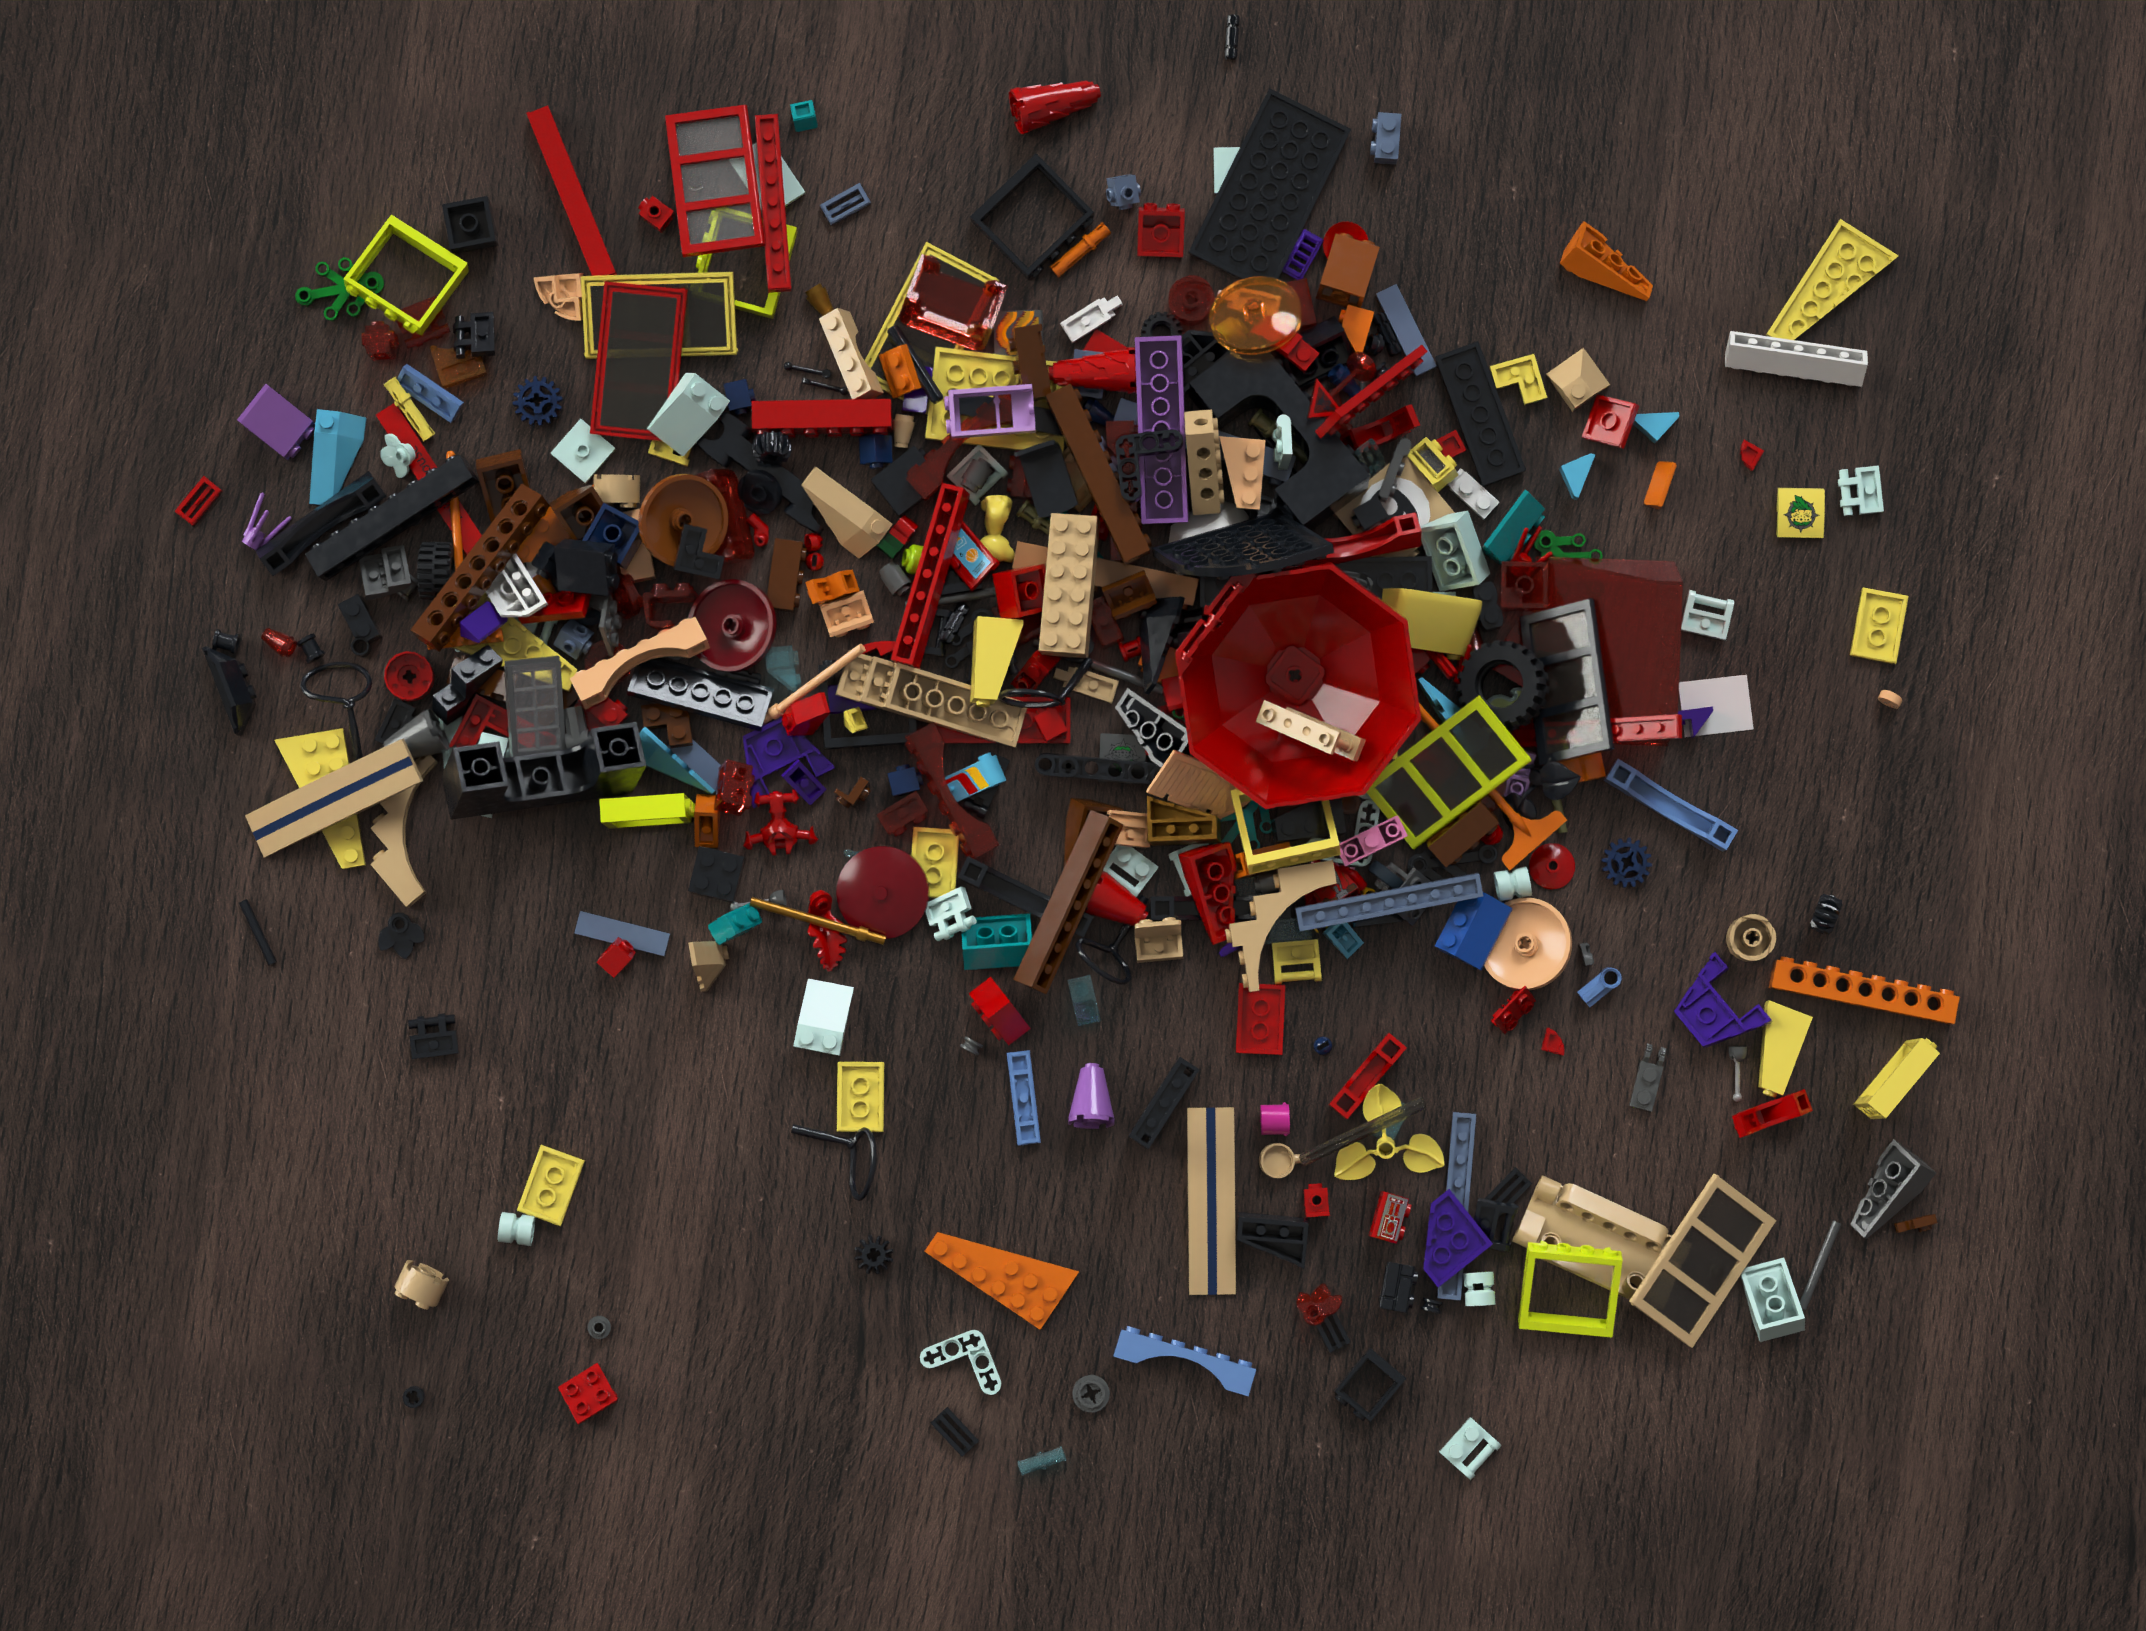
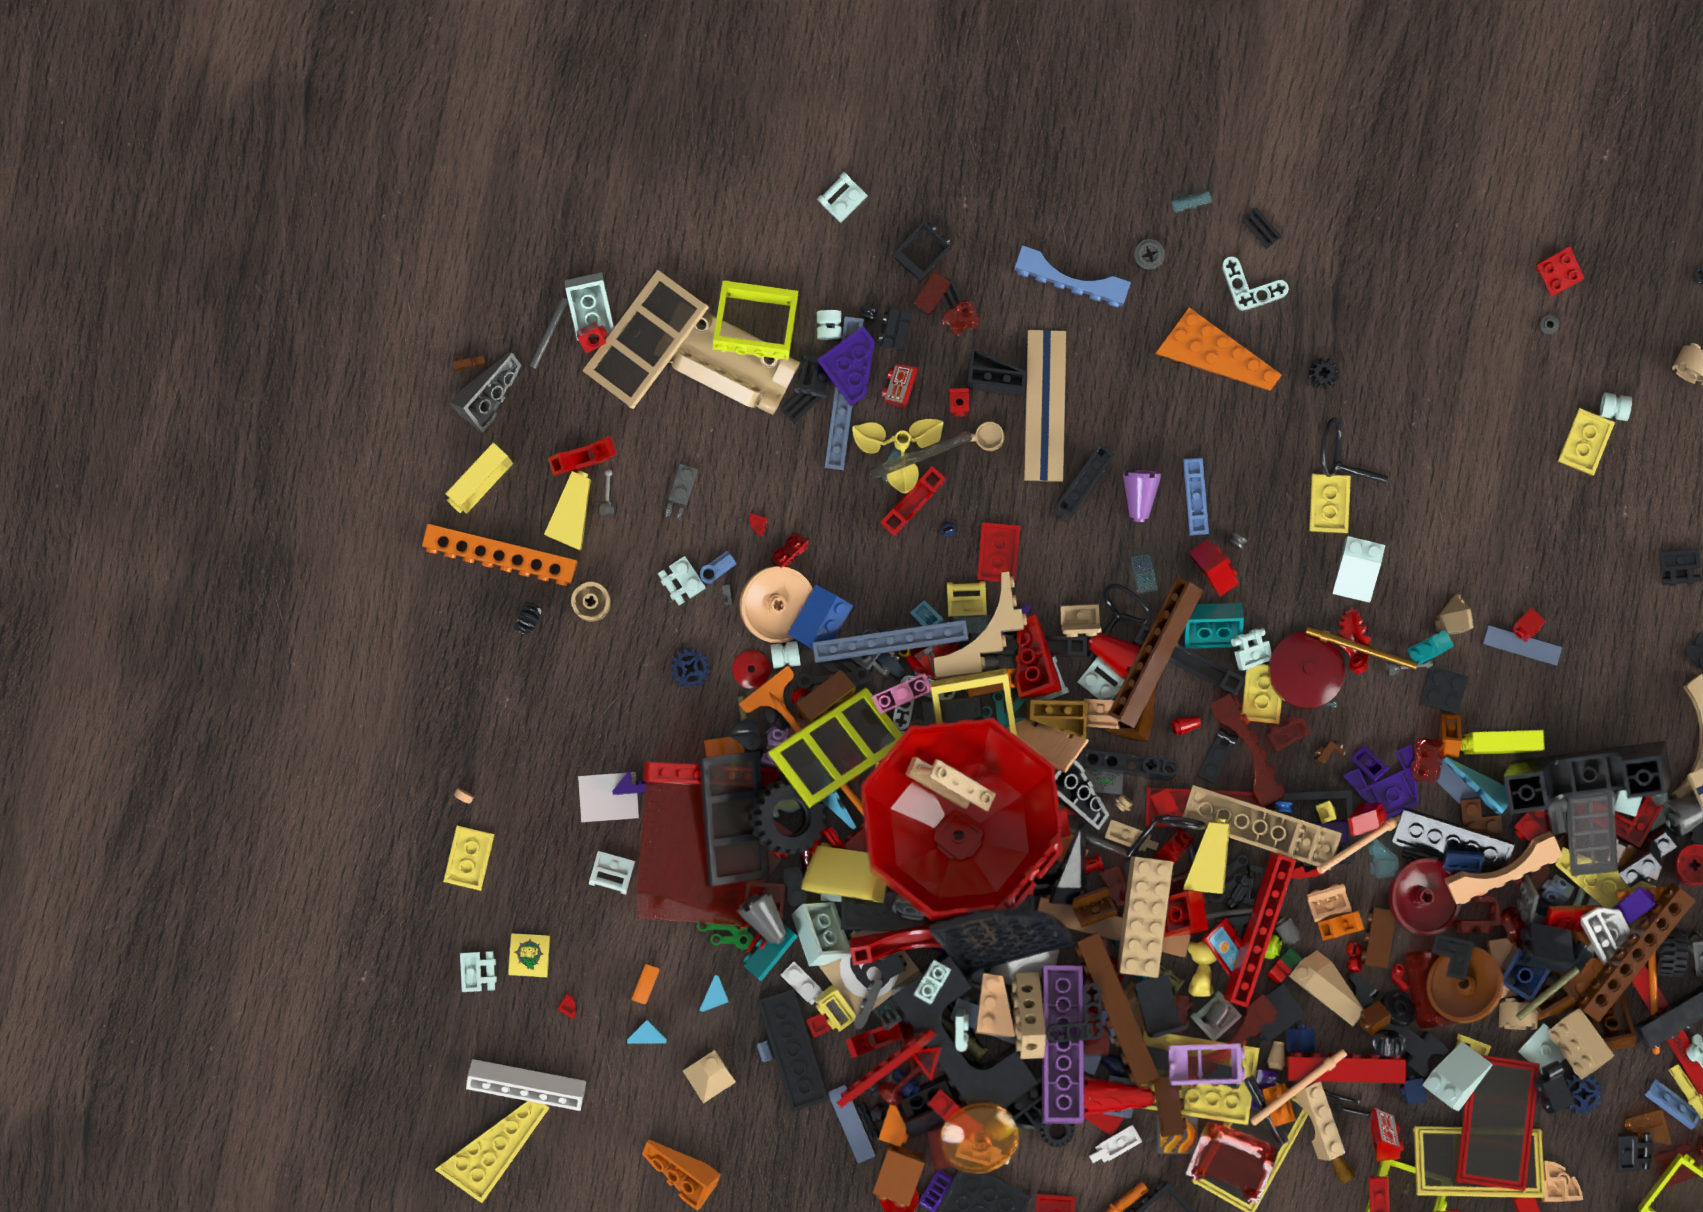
camera: 175 degrees left, 0 degrees up
(542, 457) = (1580, 1043): none -> tan brick
(574, 402) = (1553, 1088): none -> black hinge
(584, 513) = (1547, 993): none -> olive bar
(688, 669) = (1463, 861): none -> dark blue plate
(771, 340) = (1385, 1135): none -> red slope
(778, 832) = (1390, 724): red piece -> none
(789, 476) = (1374, 1018): none -> reddish brown brick
(844, 418) = (1329, 1063): none -> light nougat bar
(905, 780) = (1285, 761): dark blue brick -> none
(906, 724) = (1283, 807): none -> blue bush
(976, 777) = (1227, 760): medium azure door -> none
(1027, 820) = (1185, 724): none -> red cone
(1097, 723) = (1123, 803): none -> tan plate
(1183, 290) = (1035, 1166): clear red brick -> none
(1275, 1119) = (990, 469): dark pink piece -> none
(1322, 493) = (931, 982): none -> light aqua slope
(1354, 1334) = (932, 293): none -> clear red tile
(1513, 411) = (765, 1051): none -> sand blue slope
(1525, 373) = (757, 1084): light yellow plate -> none
(1525, 565) = (764, 916): none -> dark grey cone
(1610, 421) = (684, 1038): tile -> none
(1636, 974) = (687, 578): none -> light aqua plate
(1670, 806) = (651, 714): medium blue arch -> none
(1708, 1014) = (628, 539): dark purple wing -> none
(1771, 1253) = (591, 344): none -> red brick

